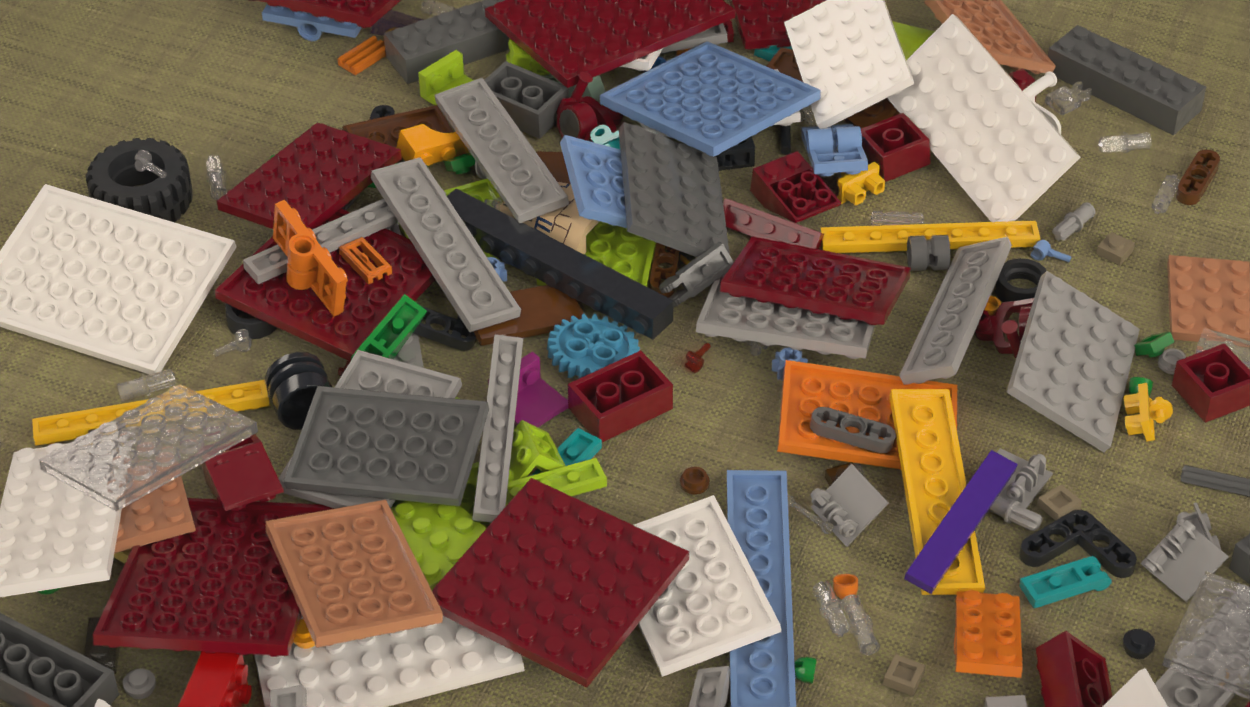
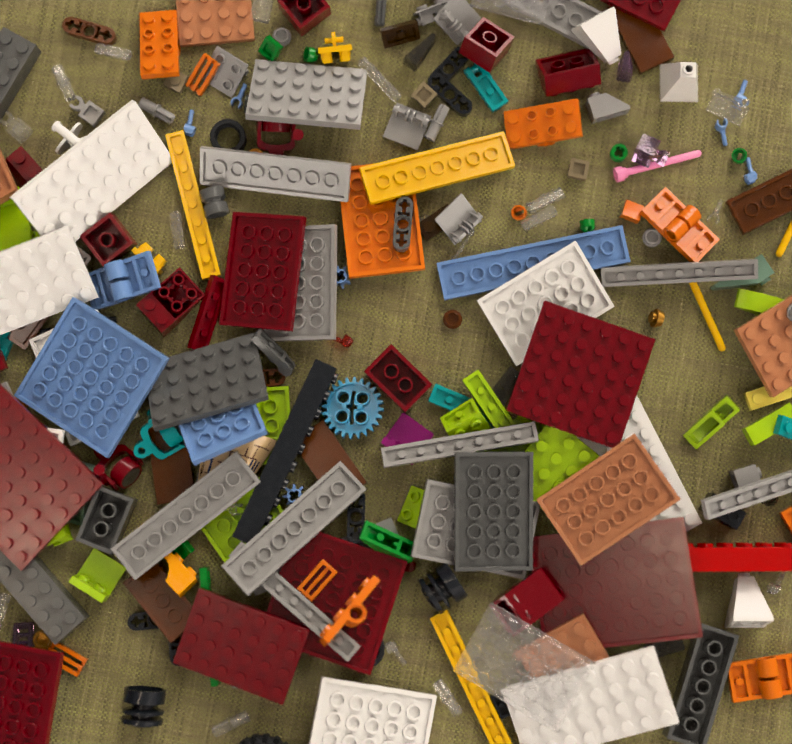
camera: 105 degrees left, 40 degrees up
(275, 96) = (143, 709): none -> black wheel
(960, 522) = (463, 148): dark purple tile -> none
(1088, 159) = (88, 112): none -> light grey plate
(1092, 459) = (379, 79): none -> clear axle
(1121, 268) = (194, 87): none -> orange tile
(1127, 295) = (229, 73): none -> light grey hinge
(1130, 508) = (417, 55): none -> clear smoke slope
(1132, 578) = (486, 44): none -> dark red brick
(1138, 643) = (522, 41): black plate -> none
(1164, 490) = (400, 33): none -> dark brown plate
(1168, 229) = (159, 44): none -> orange plate

